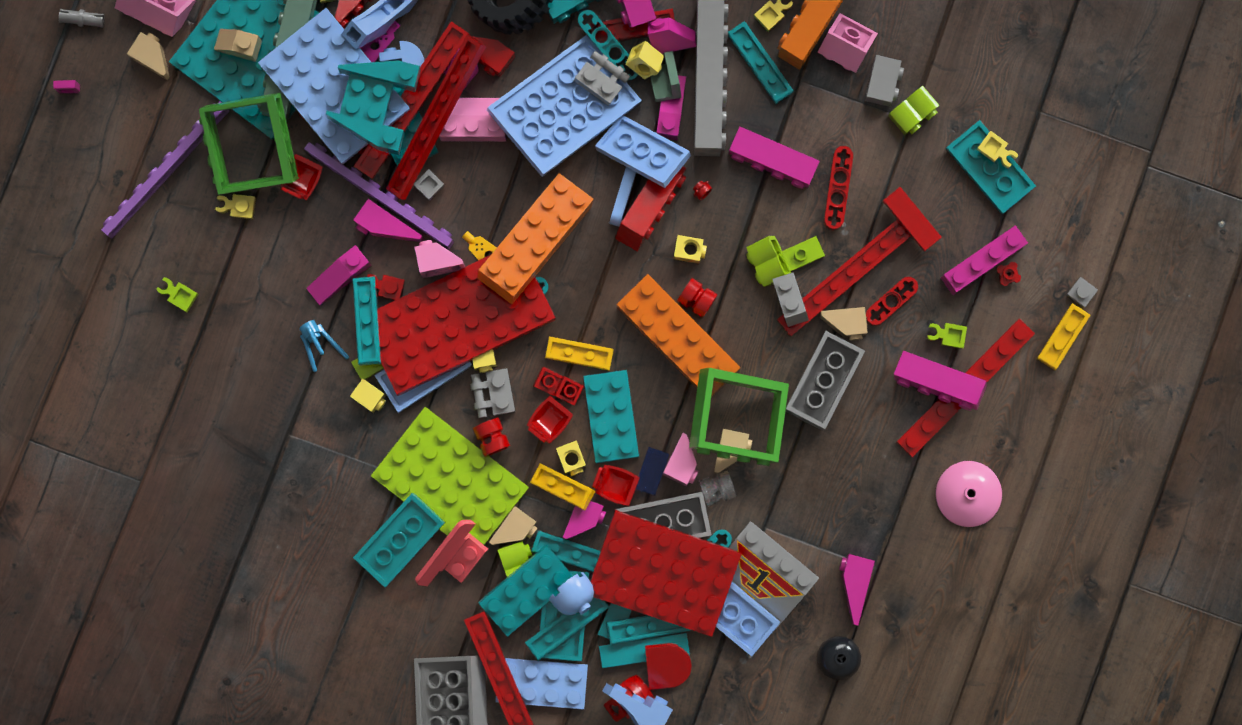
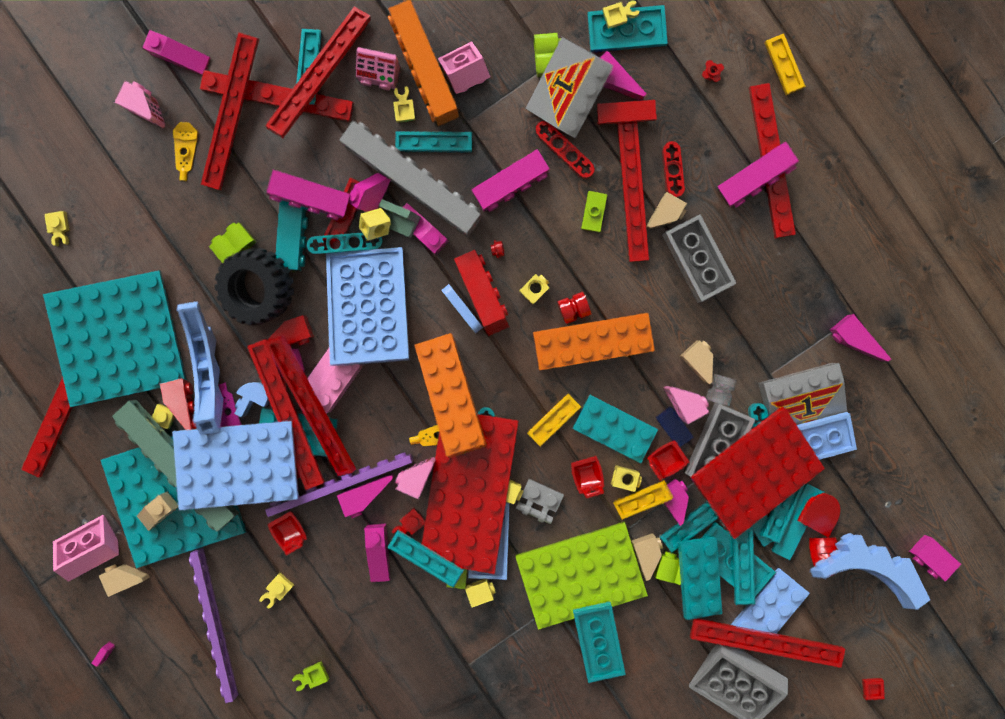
camera: 55 degrees left, 5 degrees up
(81, 18) = (60, 609): light grey pin -> none
(281, 136) = (246, 529): bright green window -> none
(311, 333) = (405, 601): dark azure plant -> none
(369, 98) = (263, 449): teal wedge -> none
(429, 184) = (357, 443): light grey plate -> none
(456, 555) = (639, 608): coral plate -> none
(491, 437) = (571, 525): red wheel -> none
(558, 386) = (567, 451): red slope -> none
(574, 595) = (732, 549): light blue cylinder -> none
(597, 82) = (366, 270): light grey plate -> none
(643, 151) = (441, 272): light blue plate -> none
(702, 408) = (664, 364): bright green window -> none
(768, 260) = (583, 238): lime brick -> none
(790, 299) = (624, 241): light grey brick -> none
(828, 655) = (900, 387): black cylinder -> none
(883, 81) = (510, 61): light grey brick -> none
(896, 151) = (569, 87): none -> light grey slope
(937, 184) = (621, 81): none -> dark pink slope
(951, 335) = (728, 144): lime plate -> none
(953, 497) = (837, 216): bright pink dish -> none
(984, 260) = (692, 81): dark pink brick -> none
(1082, 292) = (762, 28): light grey plate -> none

